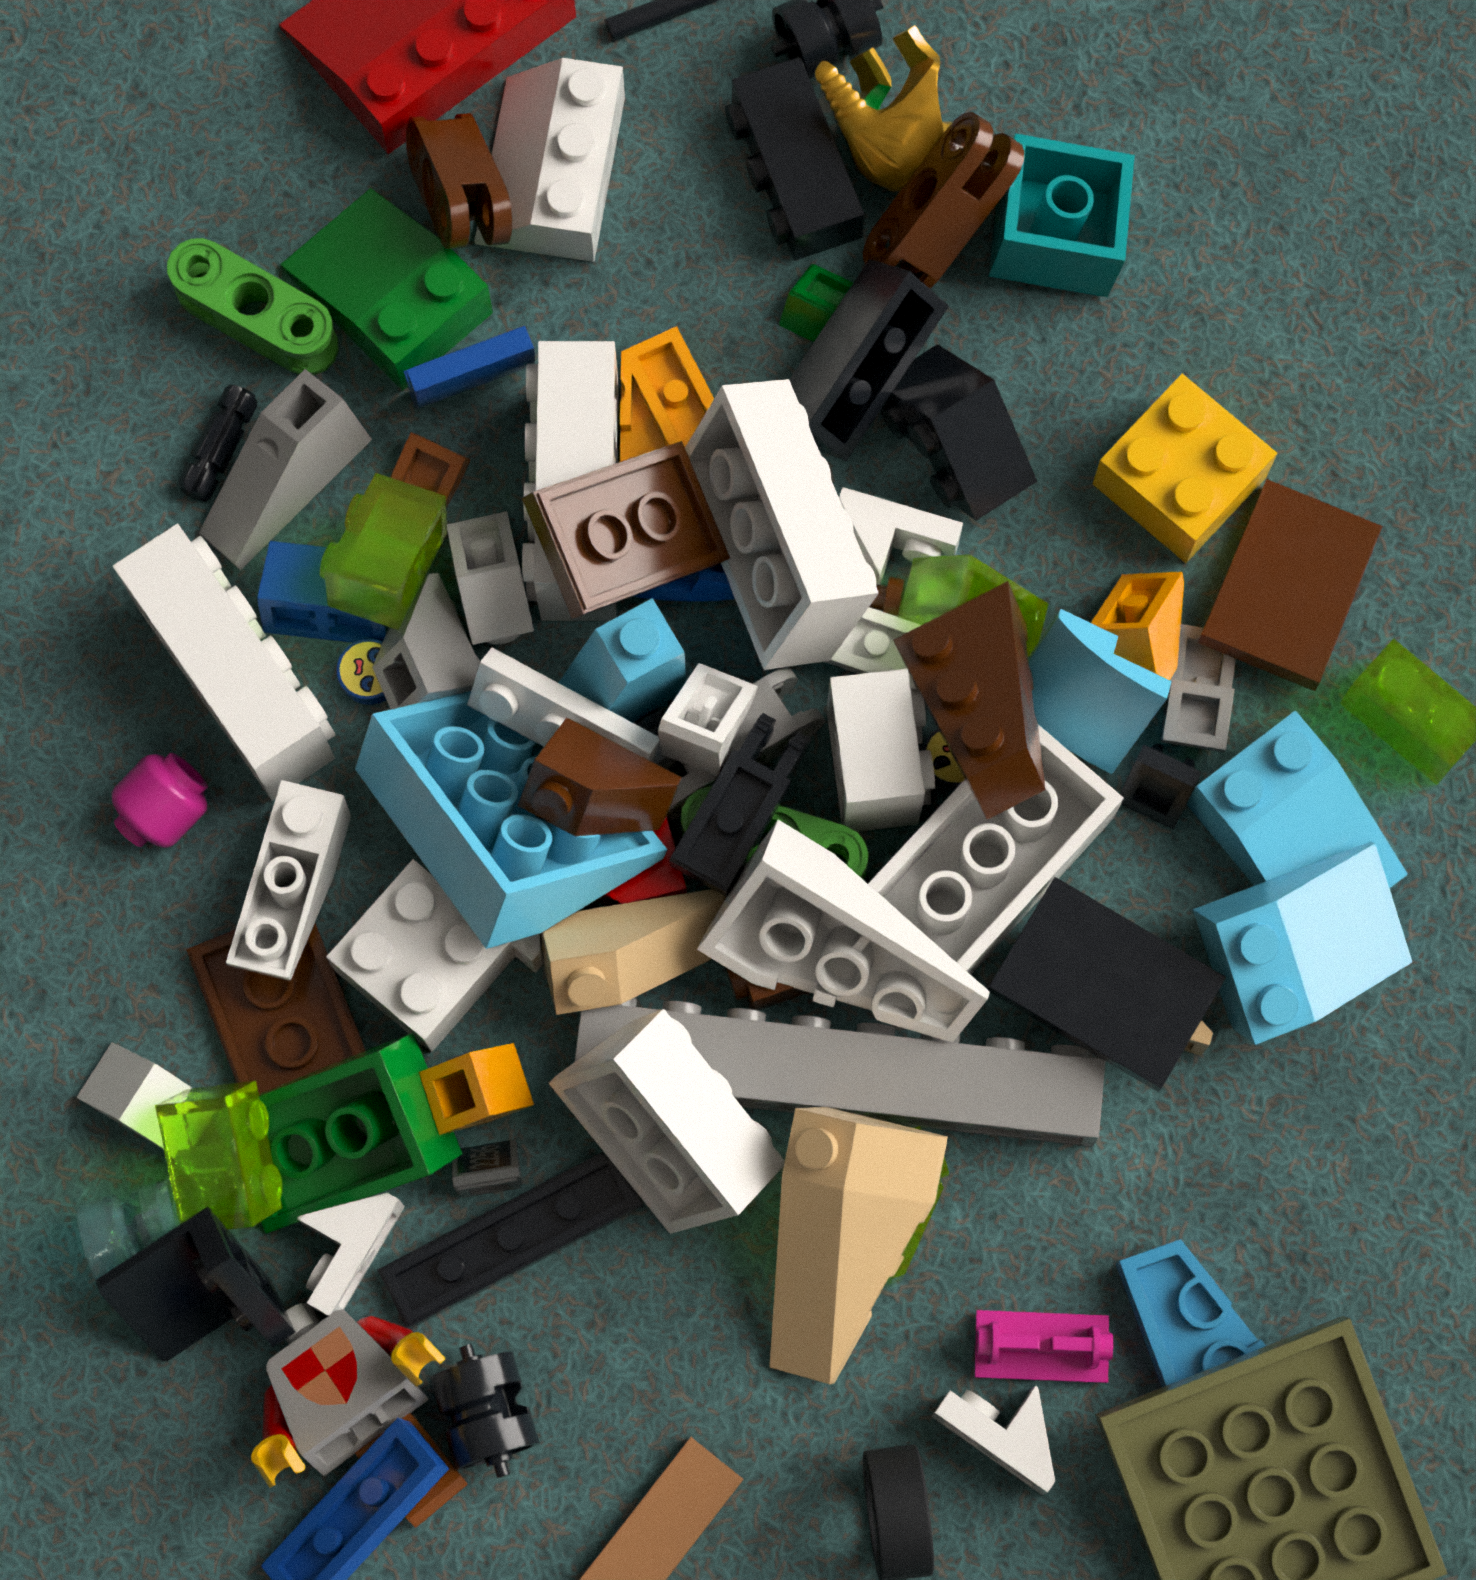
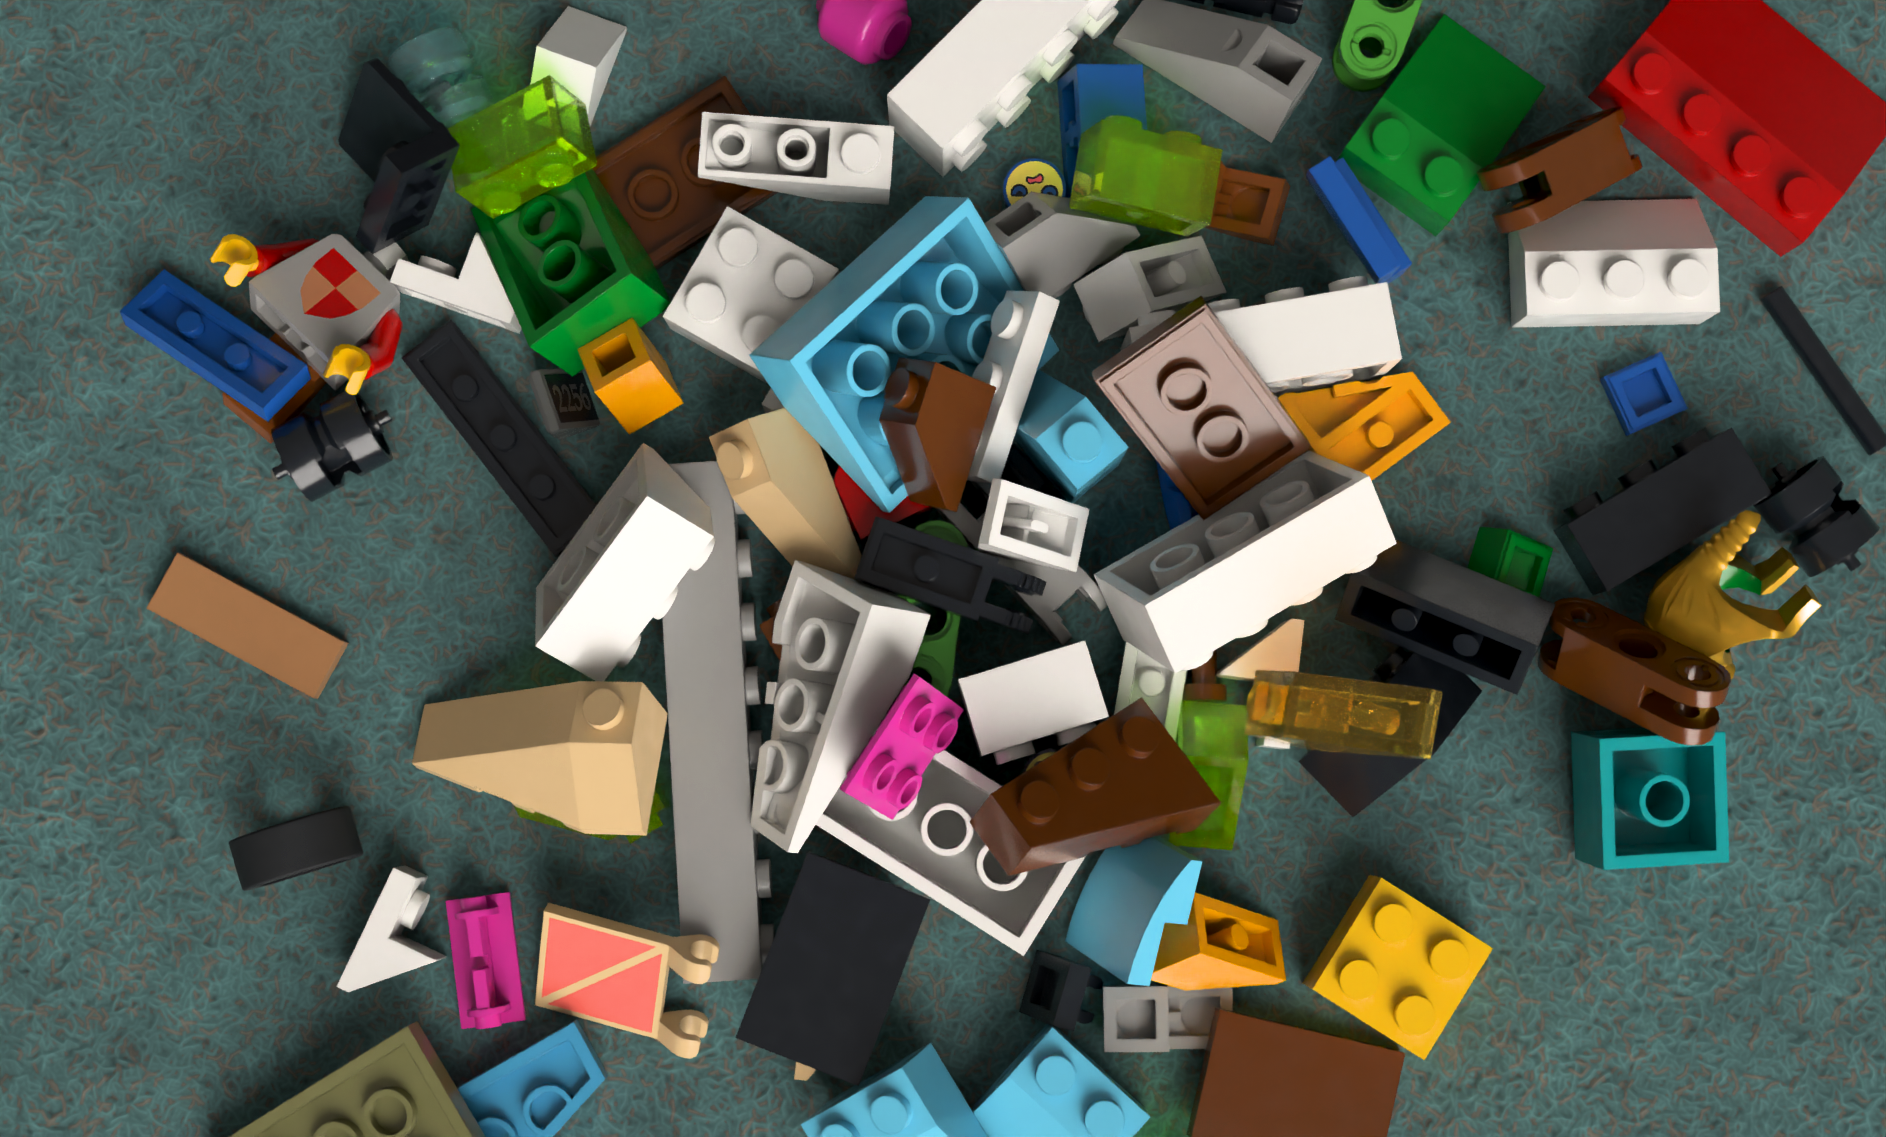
camera: 80 degrees right, 10 degrees up
(681, 157) = (1643, 393): none -> blue tile
(887, 841) = (903, 746): none -> dark pink hinge
(944, 450) = (1342, 714): none -> clear yellow slope
(1080, 1203) = (621, 975): none -> flag

